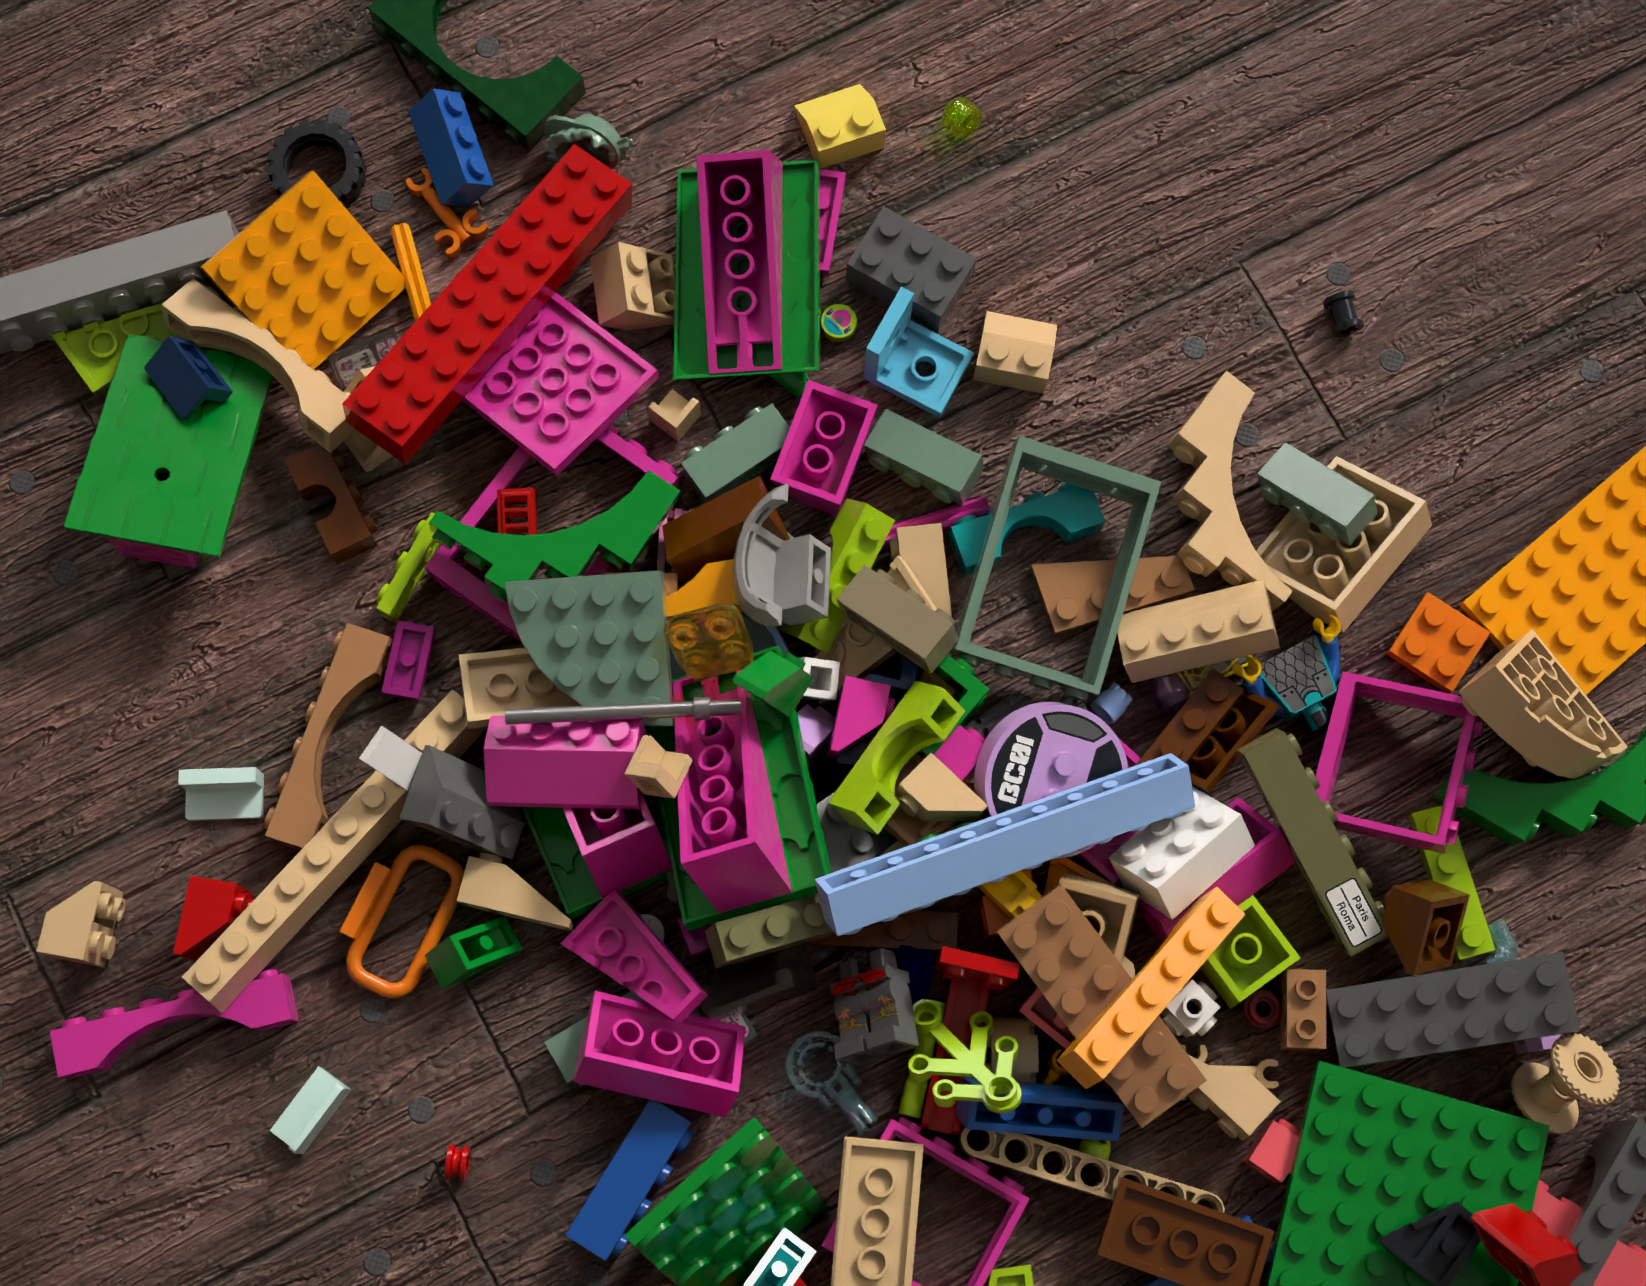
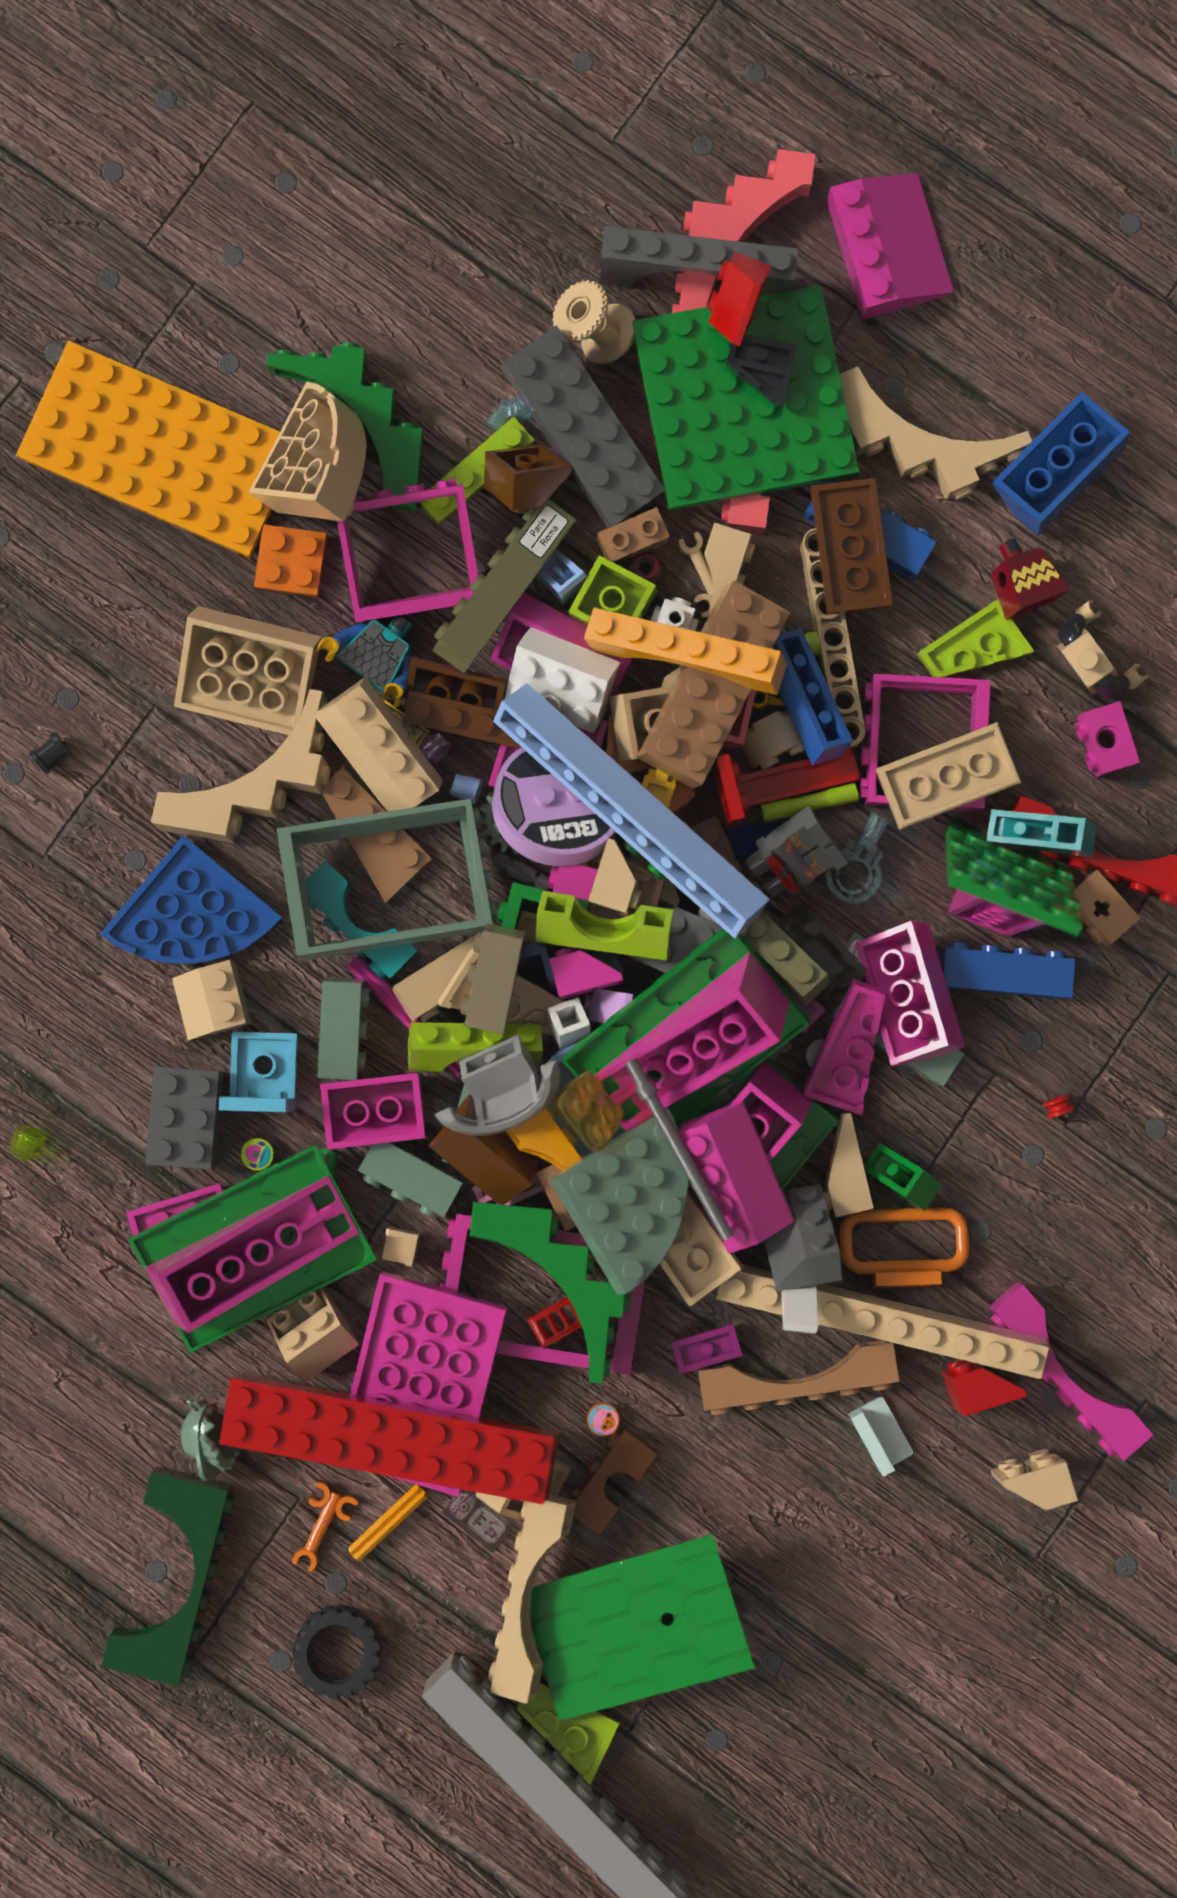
camera: 115 degrees left, 10 degrees up
(186, 376) = (575, 1649): dark blue panel -> none
(306, 272) = (437, 1604): light orange plate -> none
(310, 1110) = (1077, 1236): light aqua panel -> none
(396, 525) = (603, 1419): none -> tile
(409, 571) = (633, 1387): lime plate -> none
(450, 148) = (267, 1548): blue brick -> none
(657, 770) = (709, 1099): tan panel -> none
(775, 681) = (597, 1044): green slope -> none
(841, 125) = (83, 1239): light yellow slope -> none
(966, 1062) = (804, 763): lime plant -> none
(1116, 372) = (190, 912): none -> blue plate
(1295, 912) = (561, 577): none -> light blue slope
(1317, 494) = (220, 705): brick -> none

